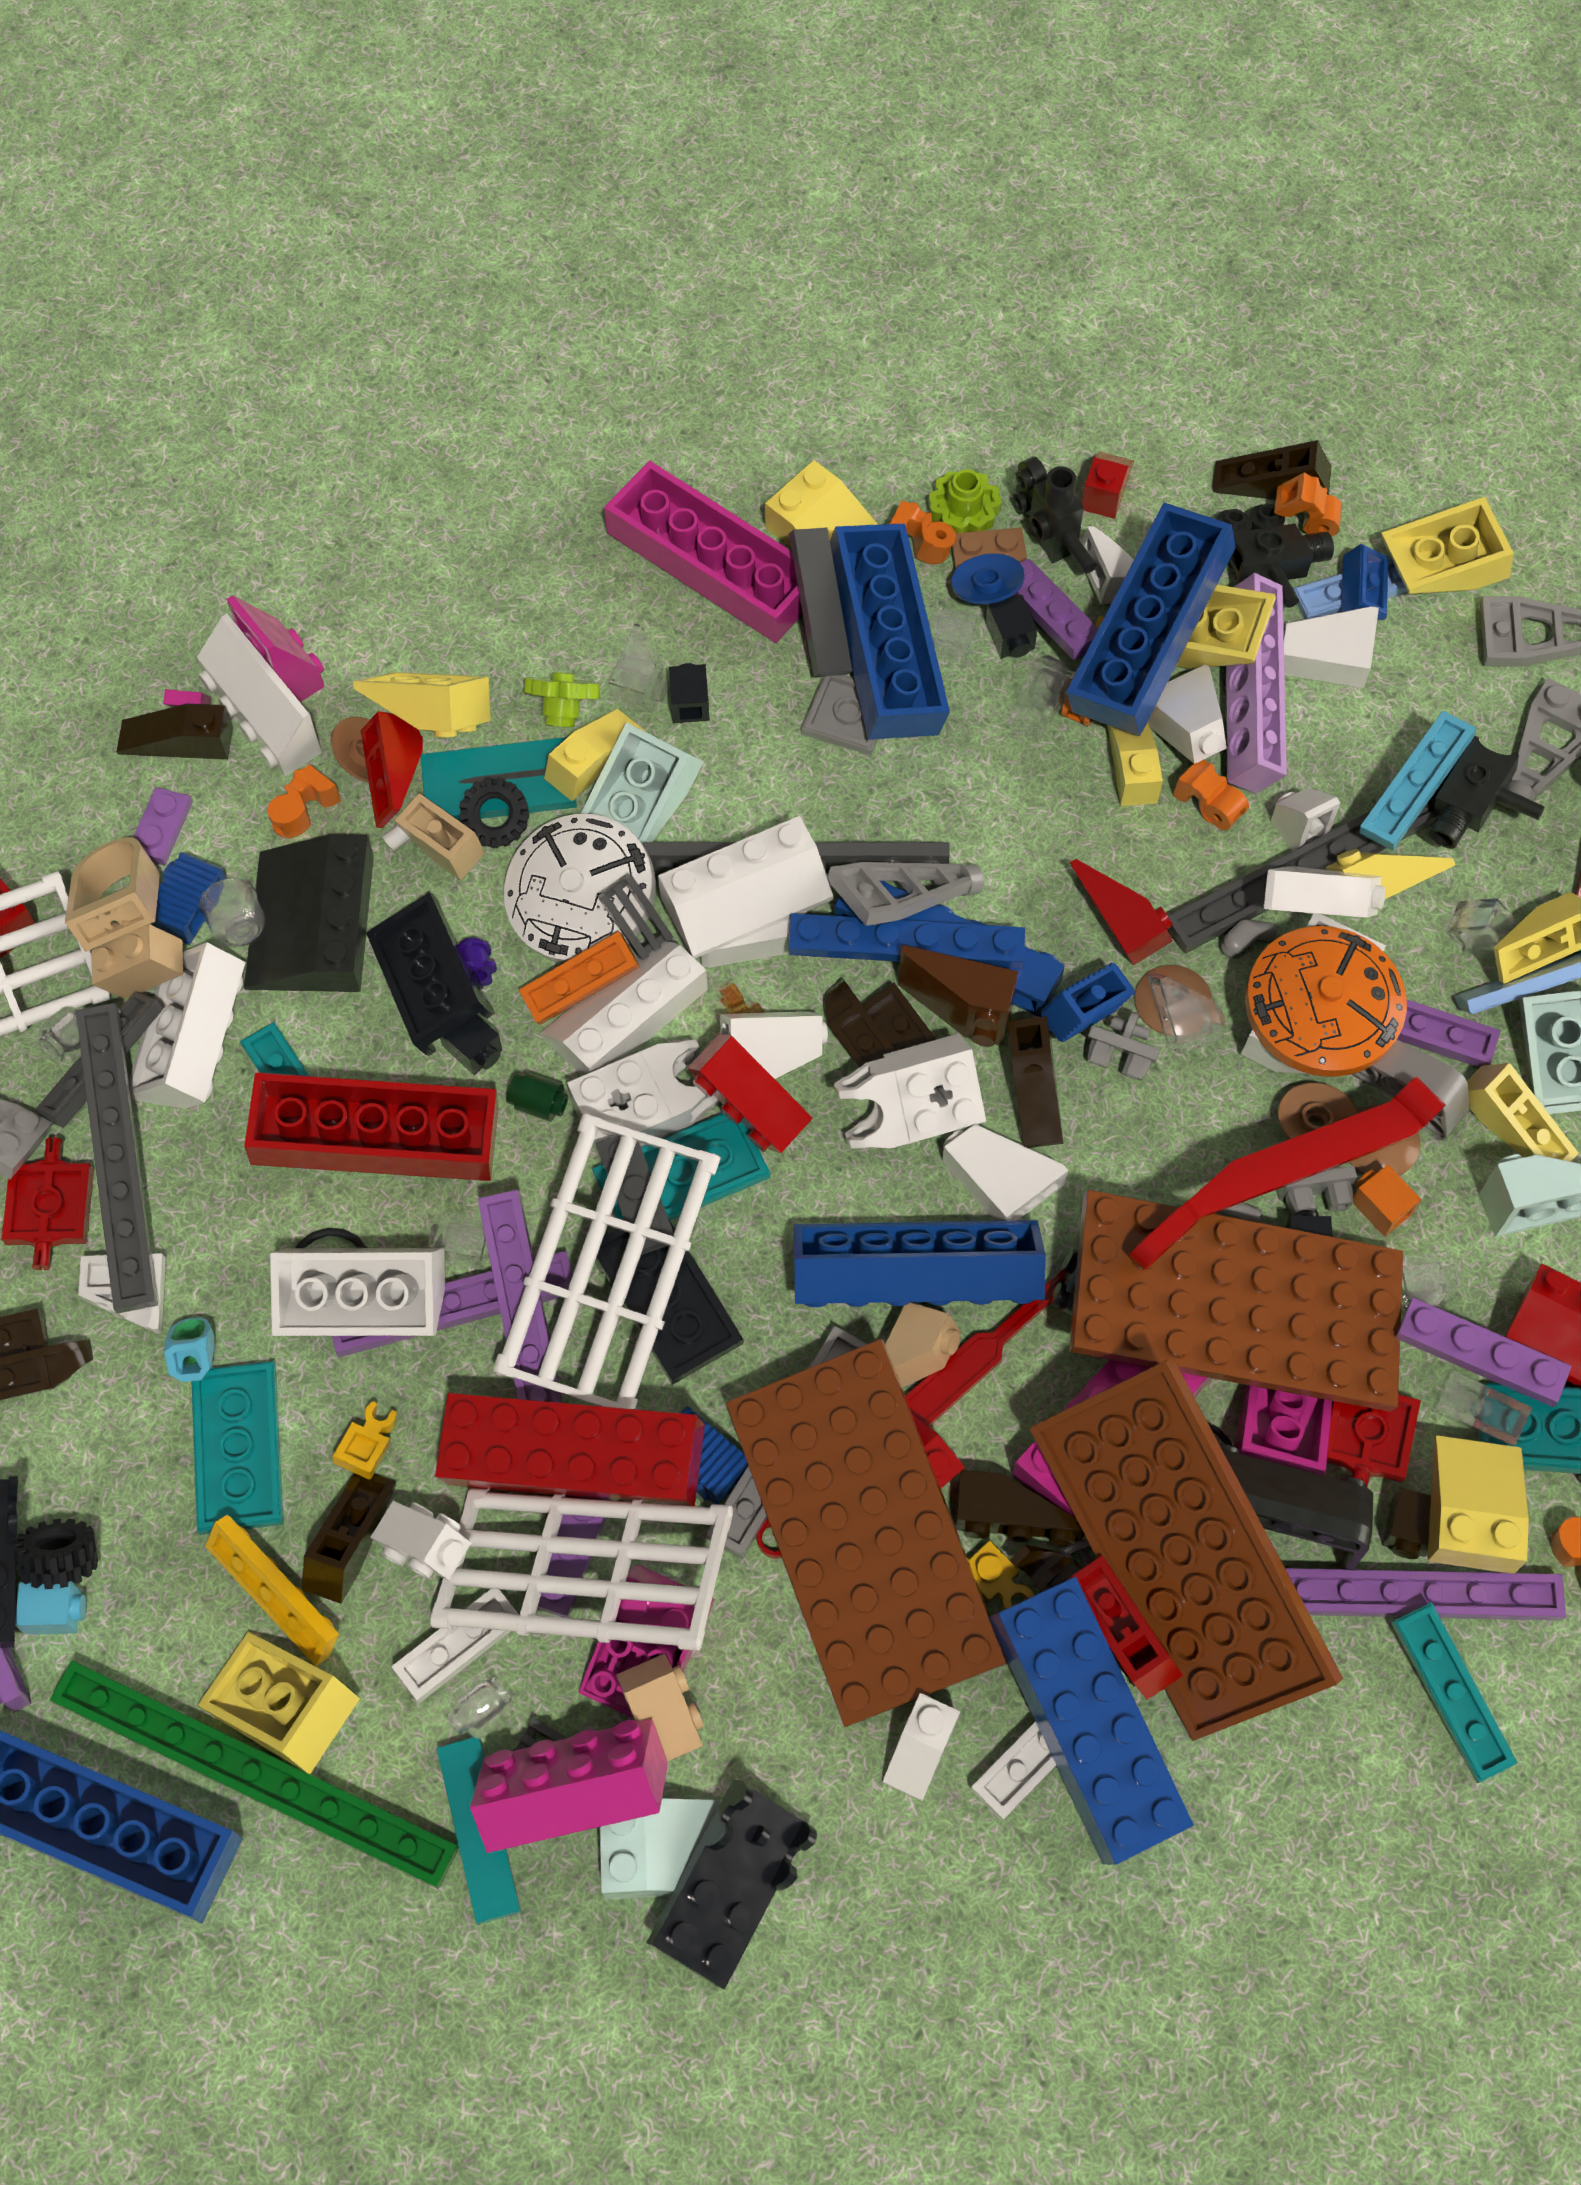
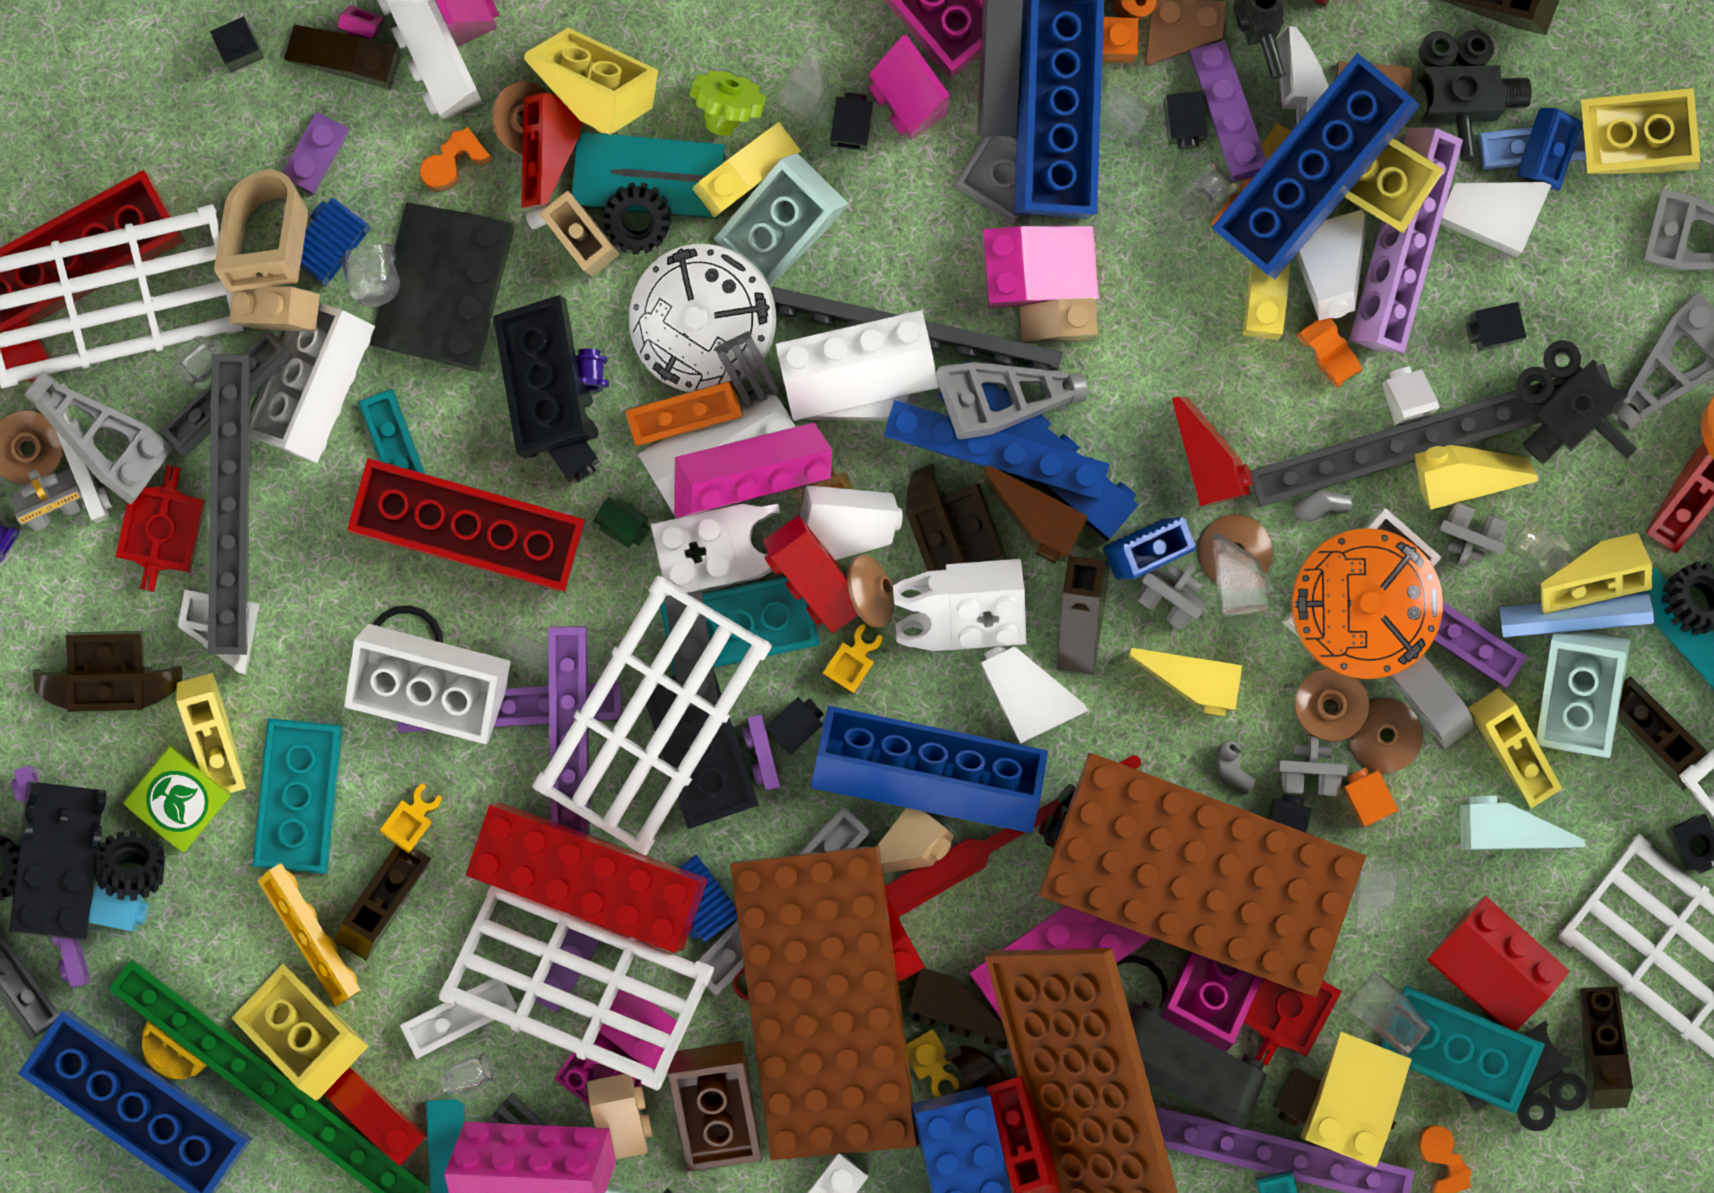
camera: 10 degrees right, 20 degrees up
(66, 741) = (236, 44): none -> black brick
(101, 1475) = (176, 798): none -> slope
(130, 1402) = (209, 731): none -> light yellow slope
(130, 1761) = (168, 1056): none -> yellow plate
(189, 1349) = (270, 701): medium azure rock -> none
(382, 1778) = (376, 1116): none -> red slope
(423, 1541) = (449, 931): white brick -> none
(659, 1006) = (750, 469): none -> dark pink slope
(740, 640) = (908, 89): none -> dark pink slope
(741, 1305) = (765, 768): none -> medium lavender plate
(763, 1255) = (796, 724): none -> black brick
(767, 1680) = (714, 1106): none -> reddish brown slope
(808, 1183) = (849, 664): none -> yellow plate
(812, 1103) = (870, 591): none -> medium nougat dish
(902, 780) = (1039, 264): none -> slope
(932, 571) = (1120, 39): none -> orange brick
(941, 818) = (1059, 321): none -> tan slope
(988, 578) = (1174, 49): blue dish -> none
(1169, 1122) = (1198, 680): none -> light yellow slope
(1297, 1160) = (1288, 764): red piece -> none
(1307, 495) = (1520, 44): orange leg -> none
(1323, 892) = (1396, 493): white slope -> none
(1367, 742) = (1496, 326): none -> black brick
(1417, 780) = (1524, 394): medium azure plate -> none
(1423, 930) = (1489, 537): none -> light grey hips
(1483, 1352) = (1406, 966): medium lavender plate -> none

